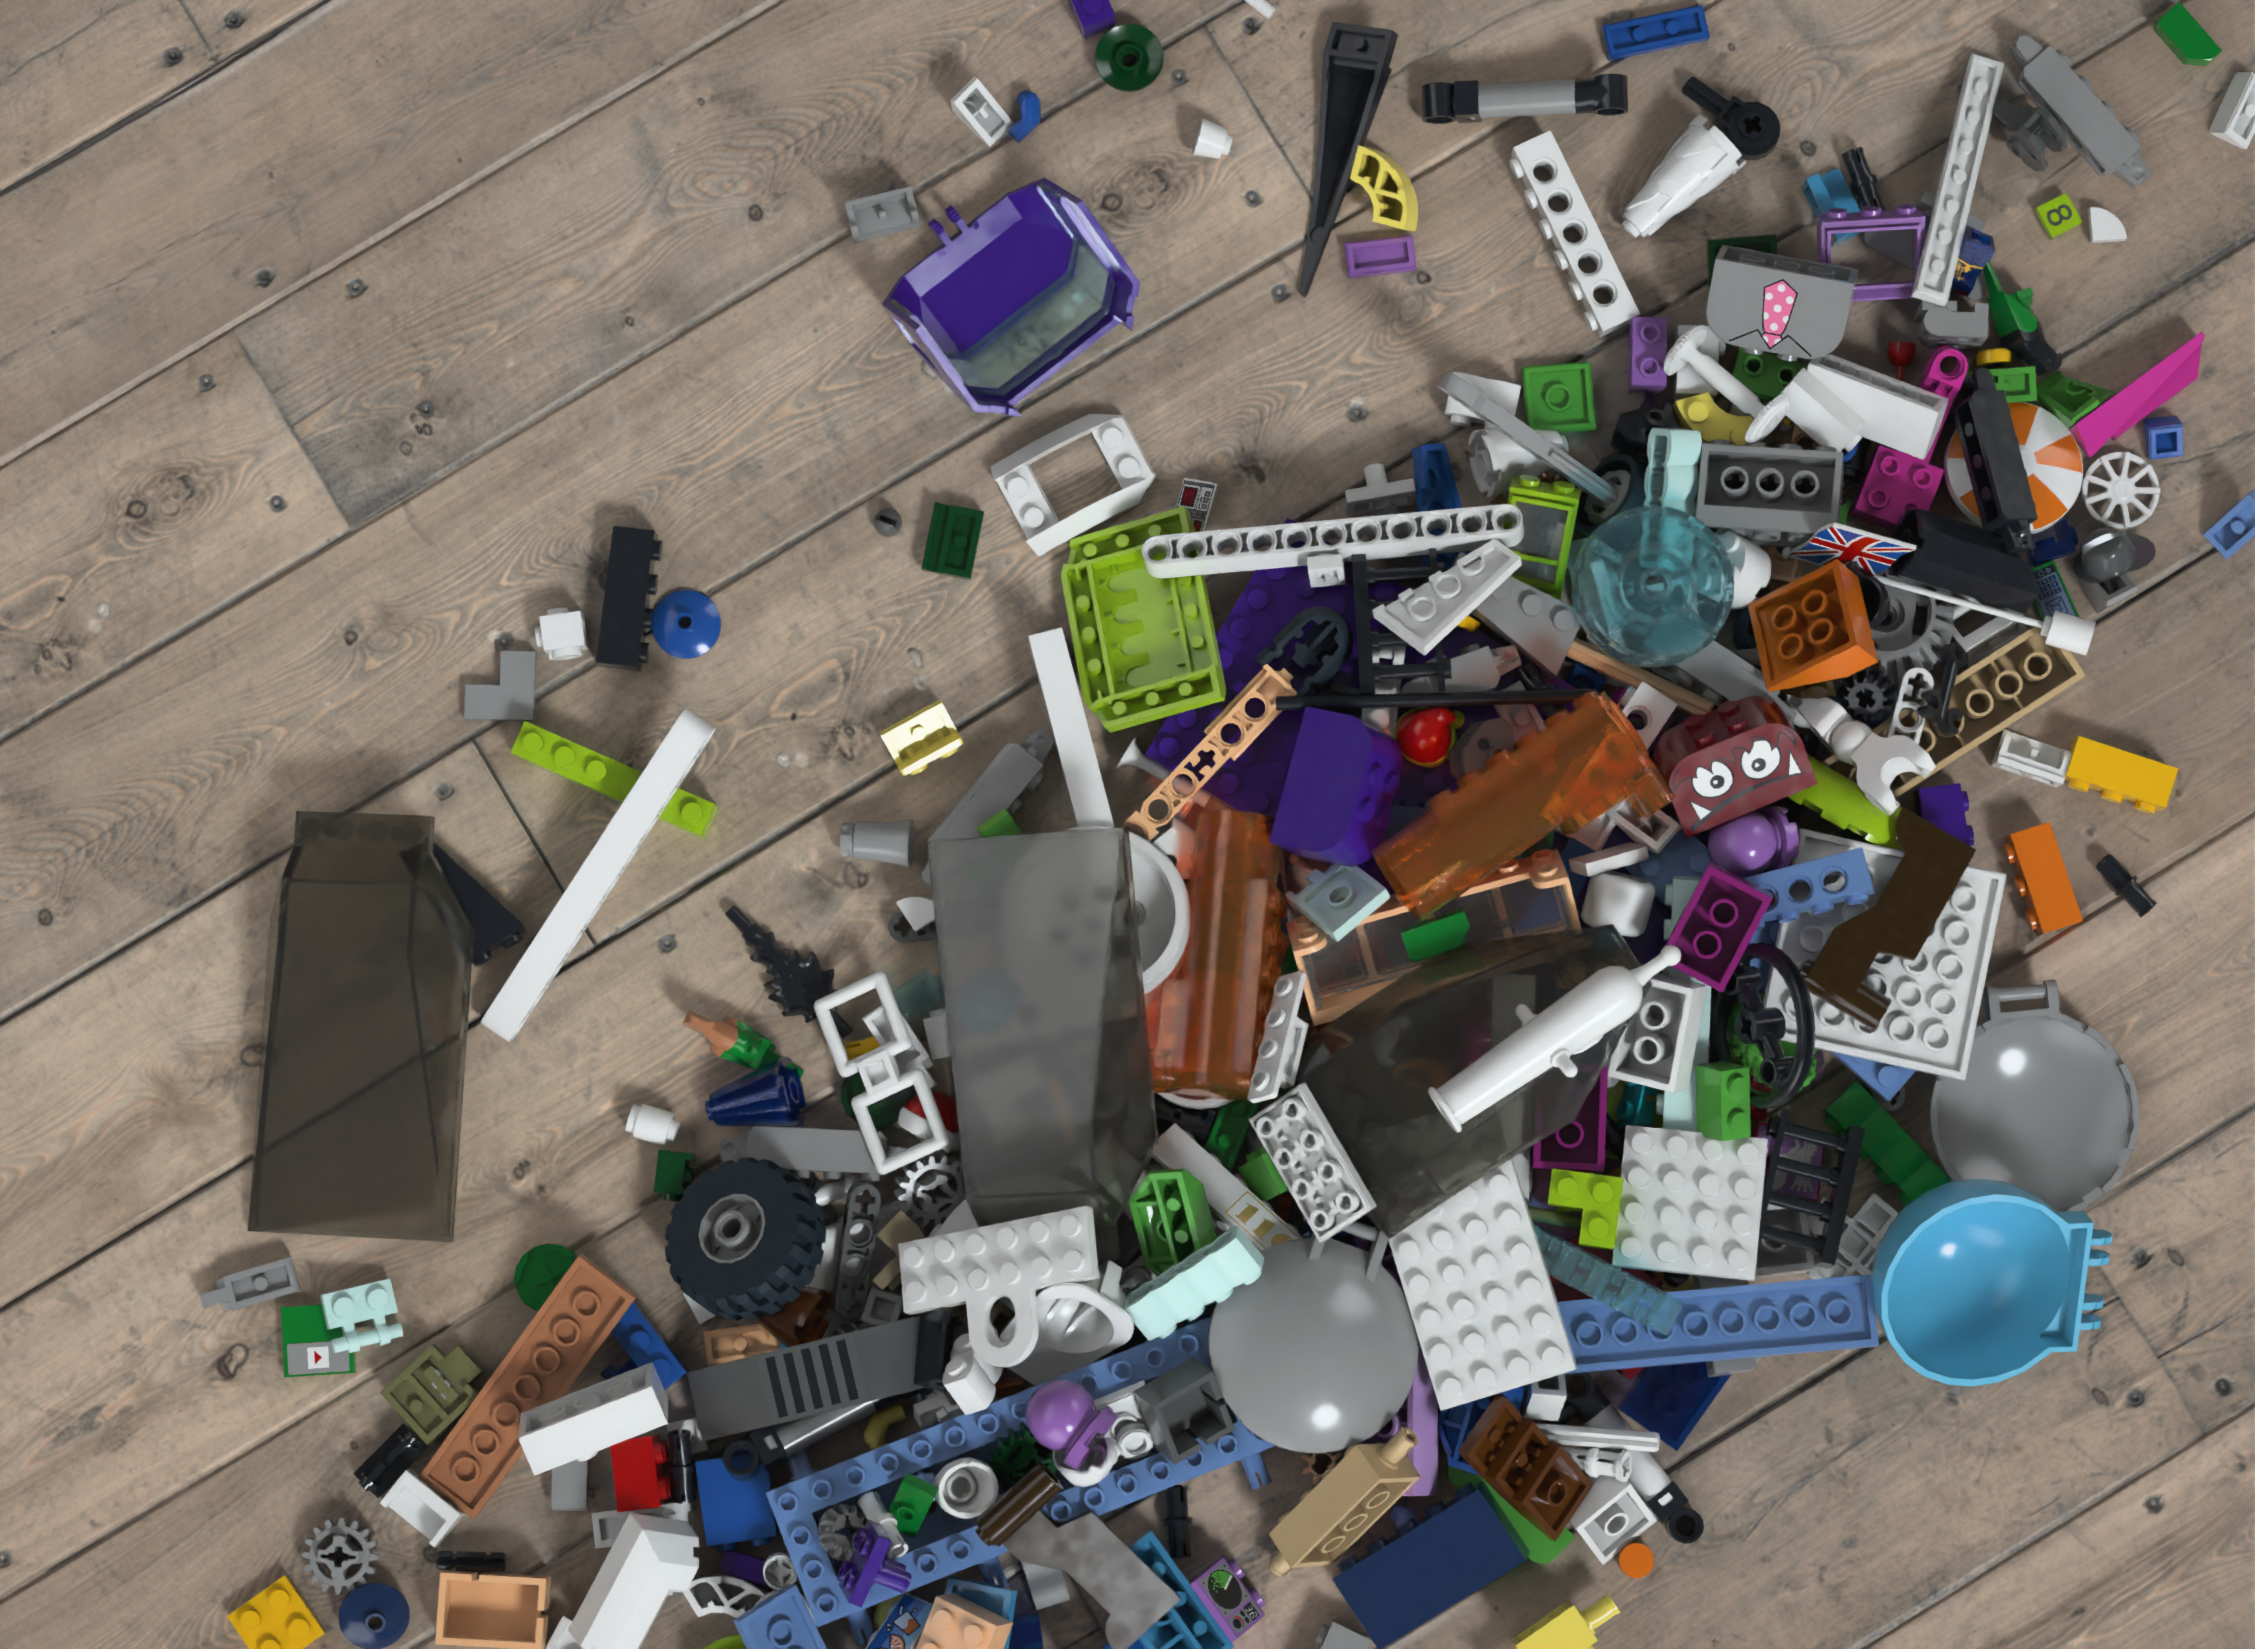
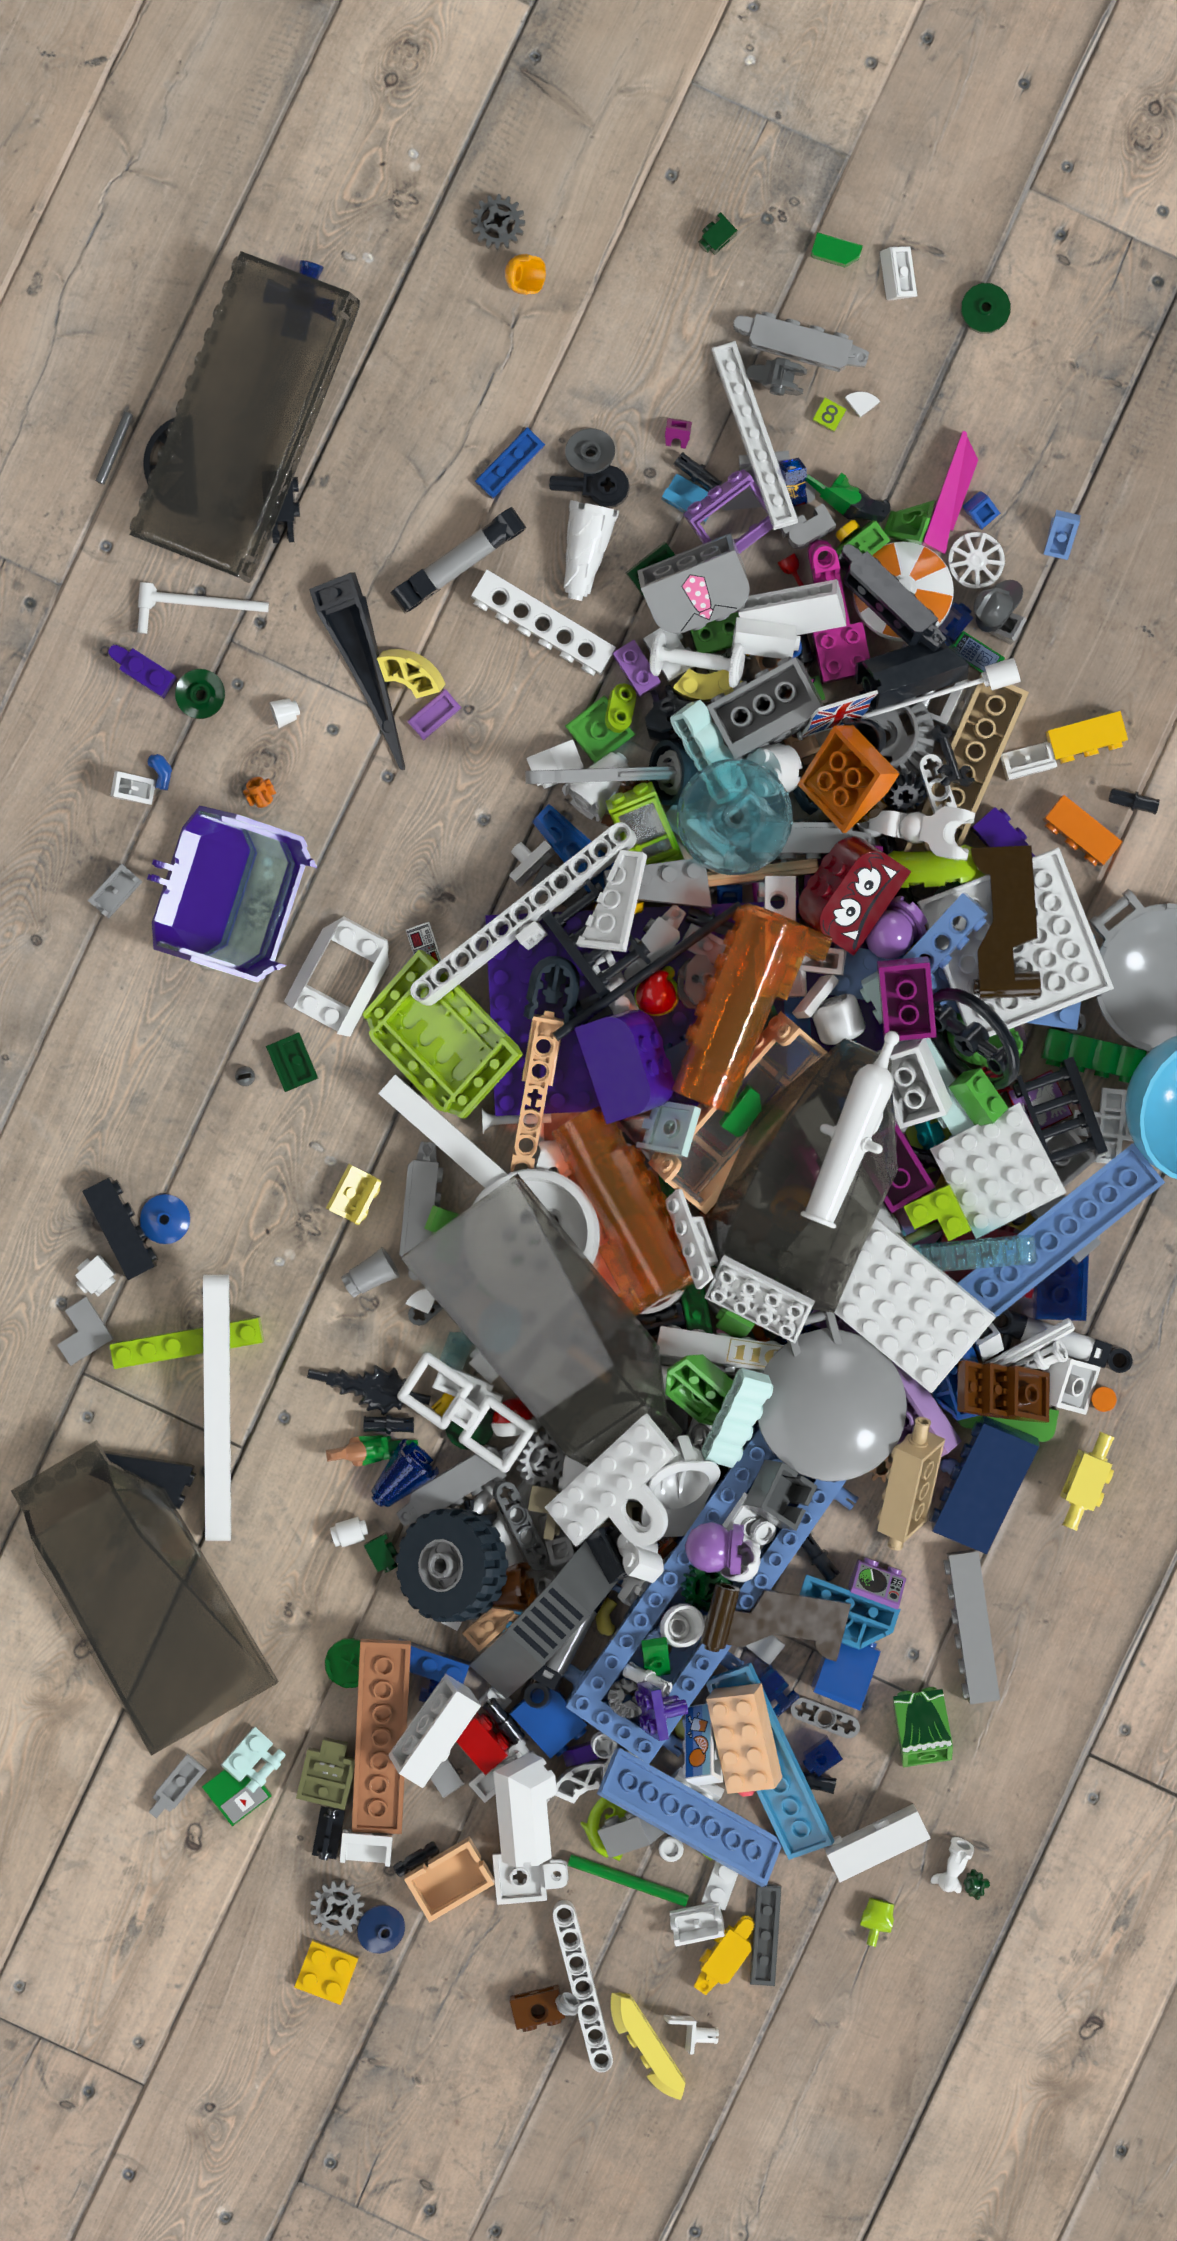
camera: 25 degrees left, 5 degrees up
(782, 1030) = (388, 1424): none -> black pin
(1122, 211) = (259, 792): none -> orange gear
(1601, 385) = (620, 706): none -> lime plate
(1761, 67) = (587, 442): none -> dark grey dish
(1873, 119) = (678, 429): none -> magenta tile

